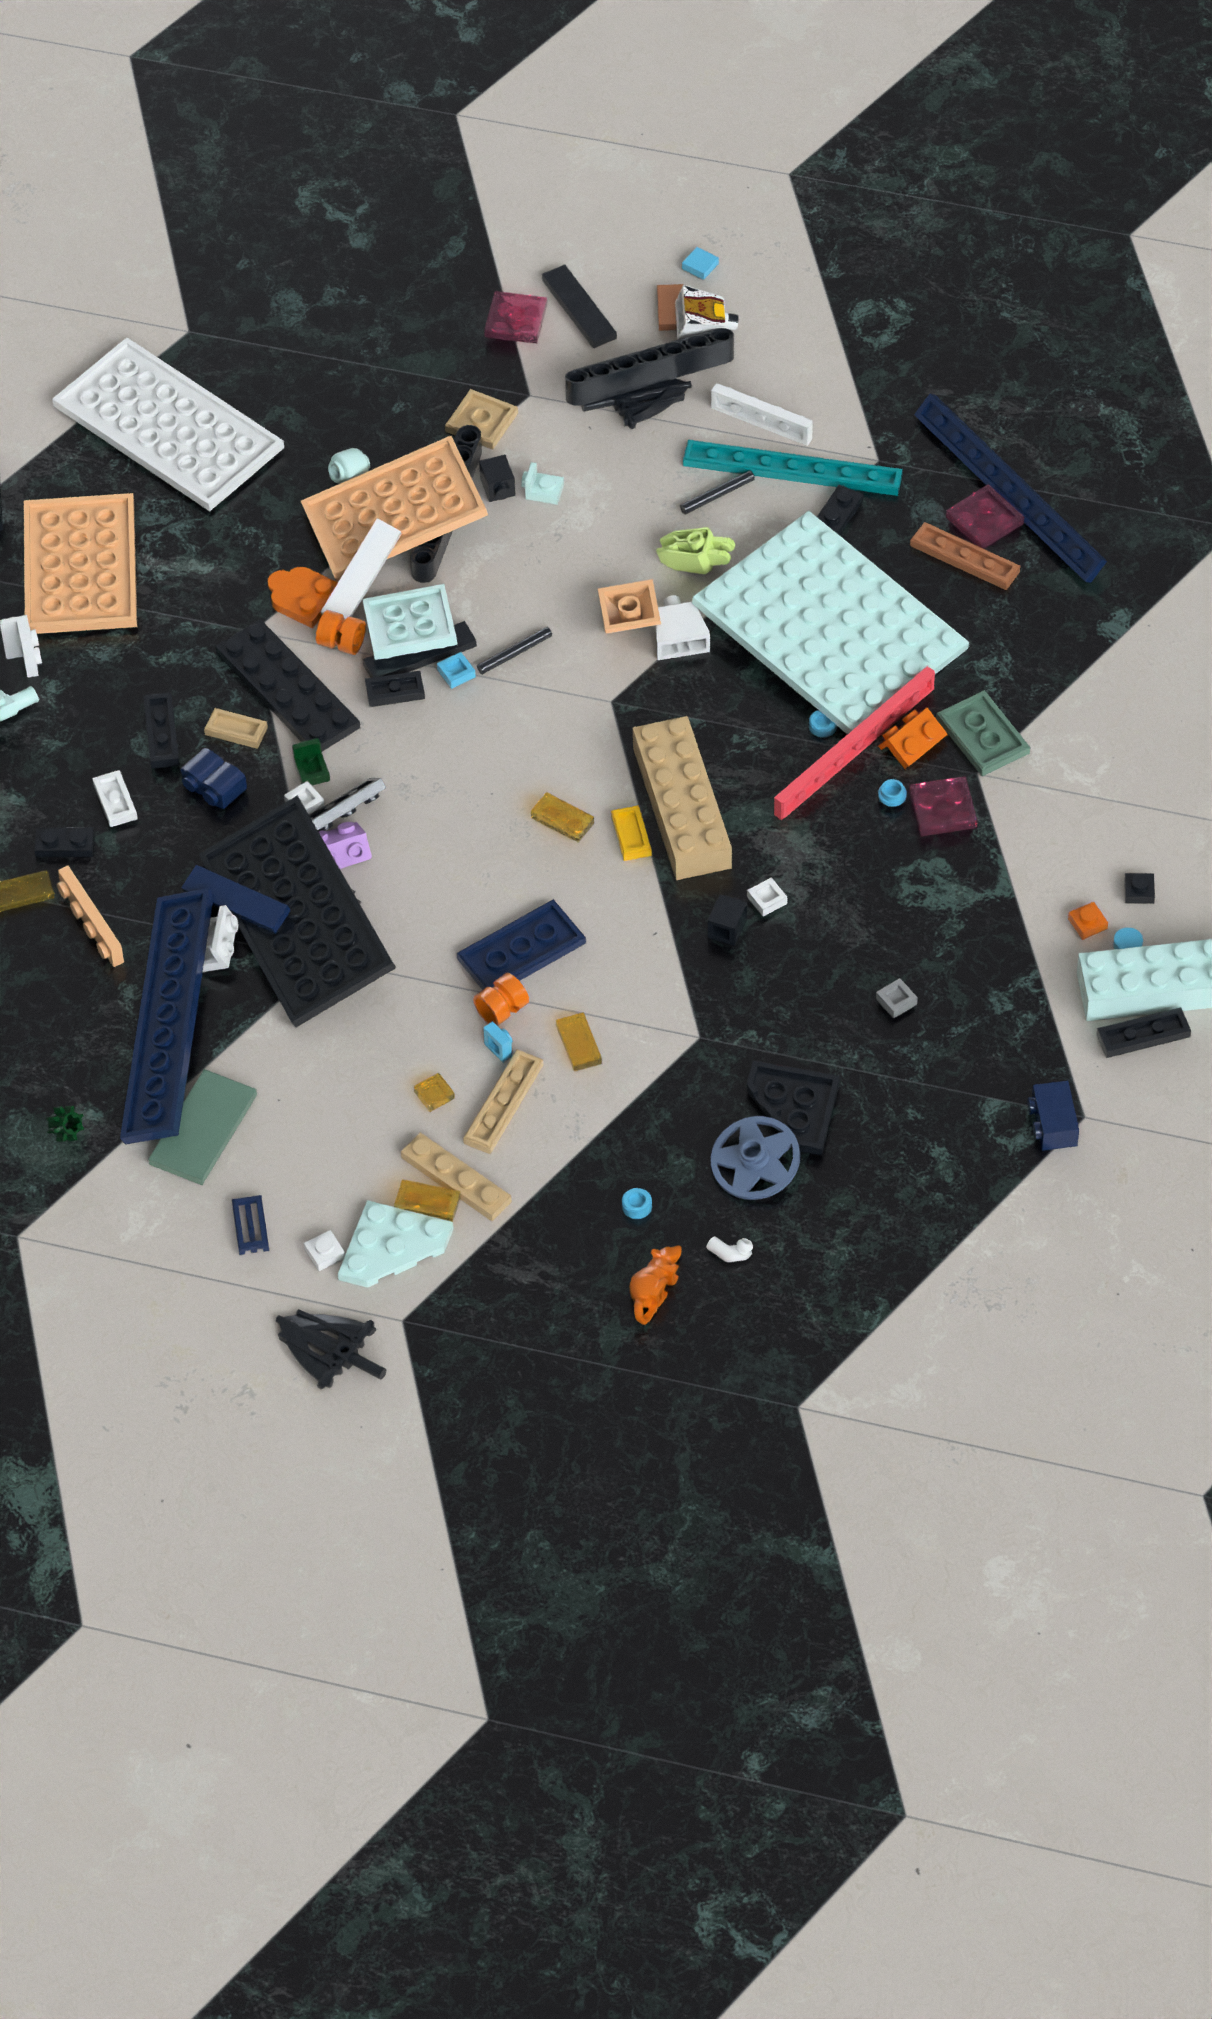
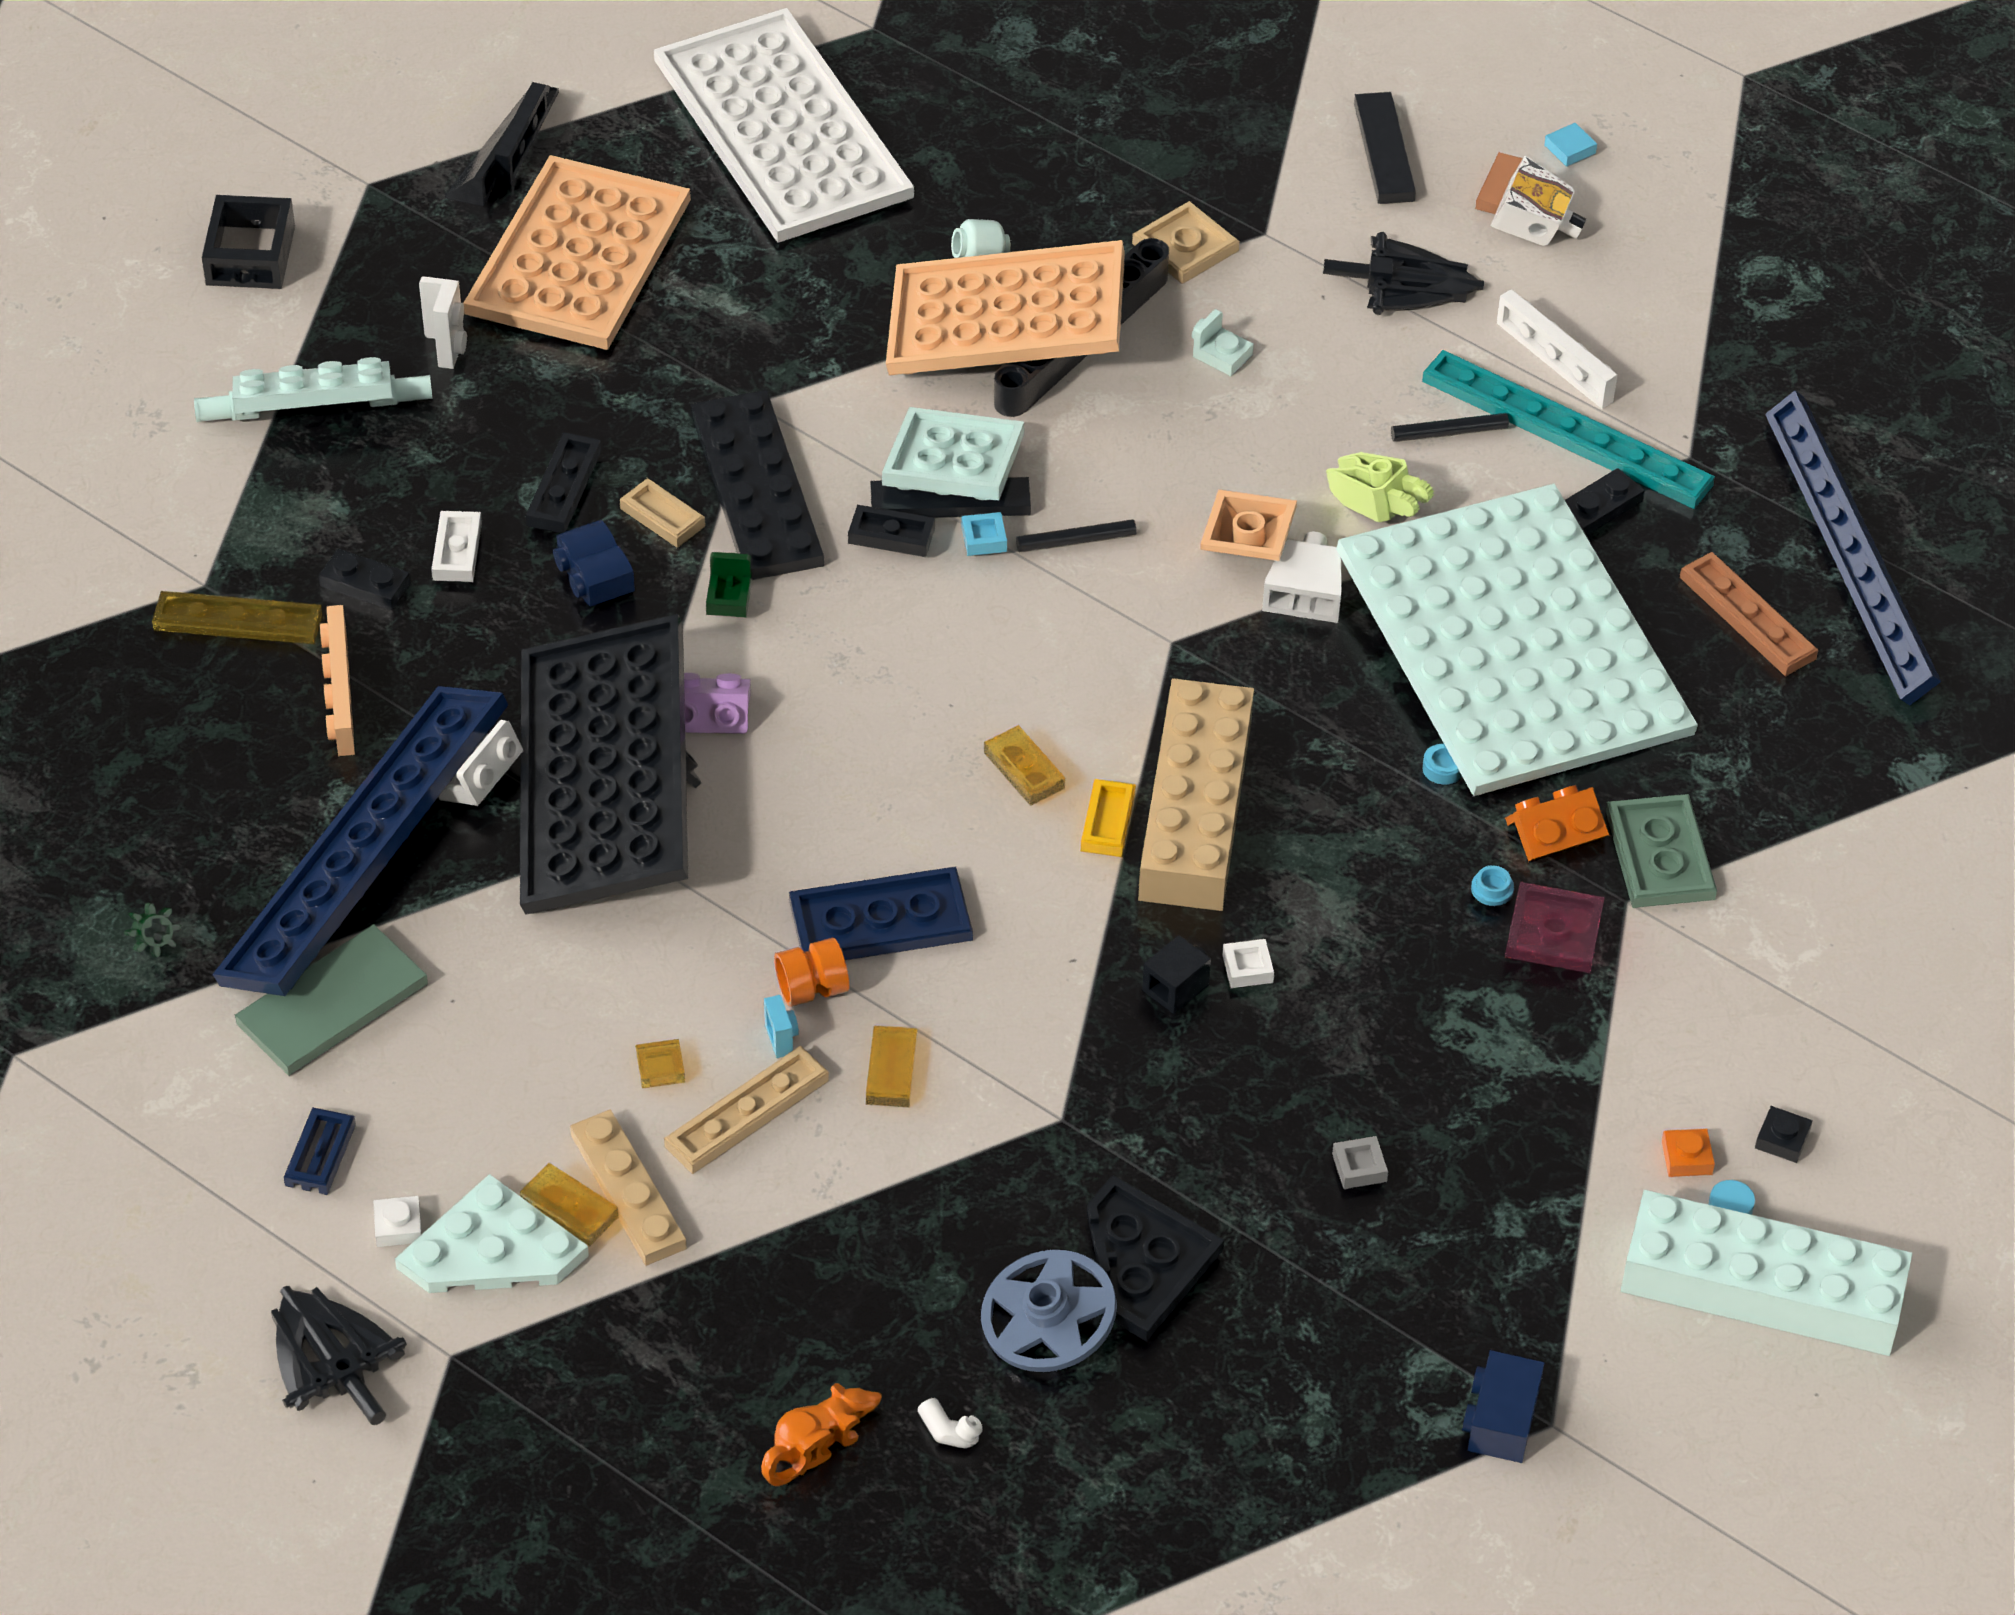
camera: 20 degrees right, 5 degrees down
(239, 899) = (536, 722): dark blue tile -> none
(300, 594) = (840, 379): orange plate -> none
(308, 795) = (699, 629): white plate -> none
(340, 632) = (857, 437): orange wheel -> none
(346, 803) = (745, 653): plate -> none
(363, 569) = (920, 371): white tile -> none
(497, 478) = (1164, 317): black brick -> none
(515, 317) = (1293, 134): clear pink plate -> none
(636, 1203) = (854, 1313): medium azure tile -> none
(649, 366) = (1433, 242): black beam -> none
(854, 743) = (1470, 802): coral tile -> none
(984, 517) = (1798, 572): clear pink plate -> none
(1143, 1032) = (1693, 1336): black plate -> none

